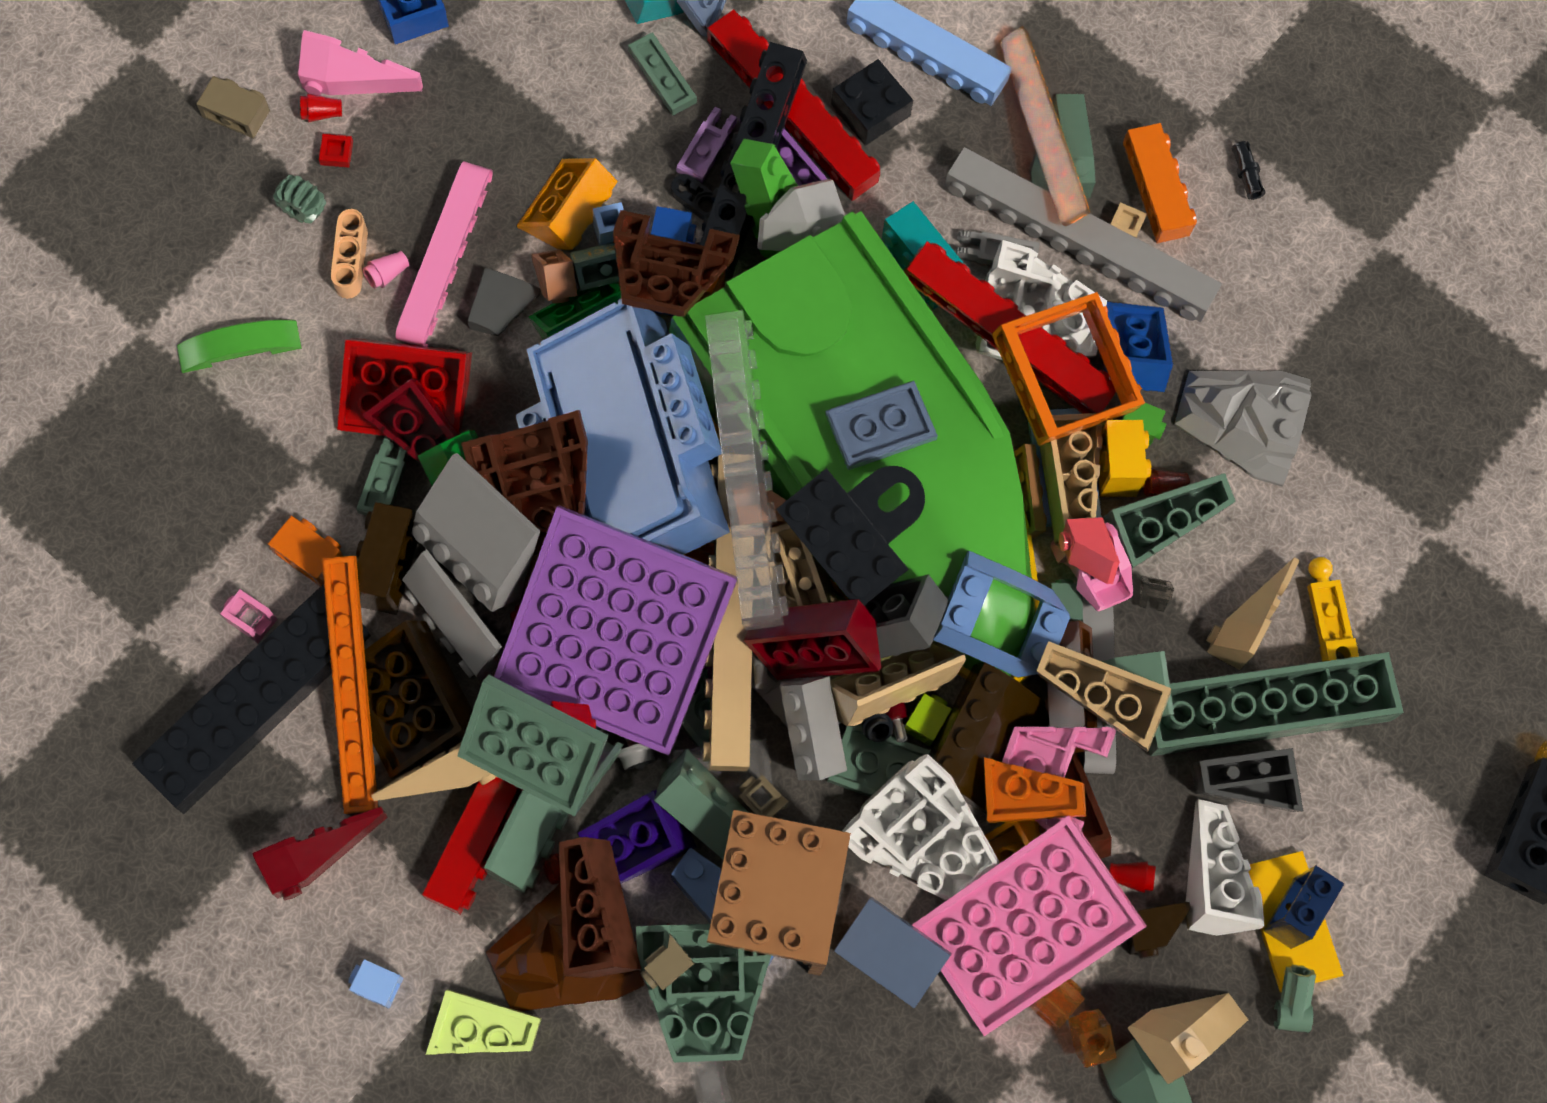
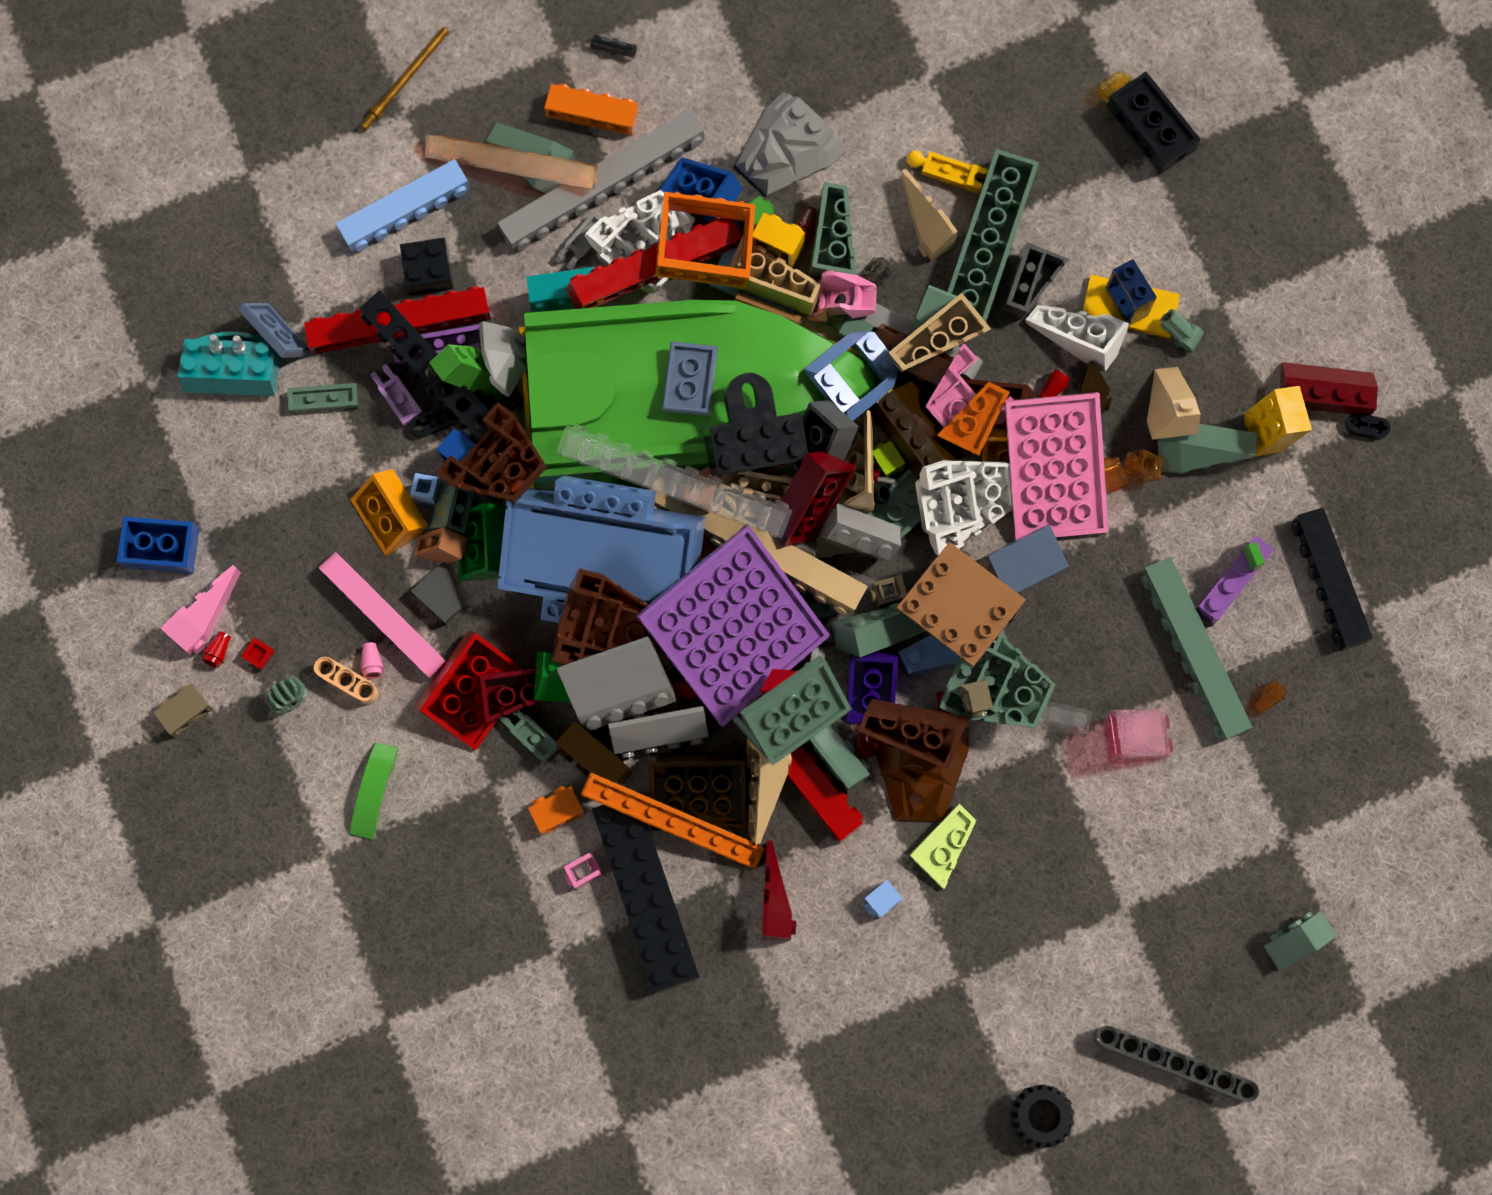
camera: 55 degrees left, 5 degrees up
(1090, 548) = (835, 293): coral slope -> none
(1128, 219) = (607, 144): tan plate -> none

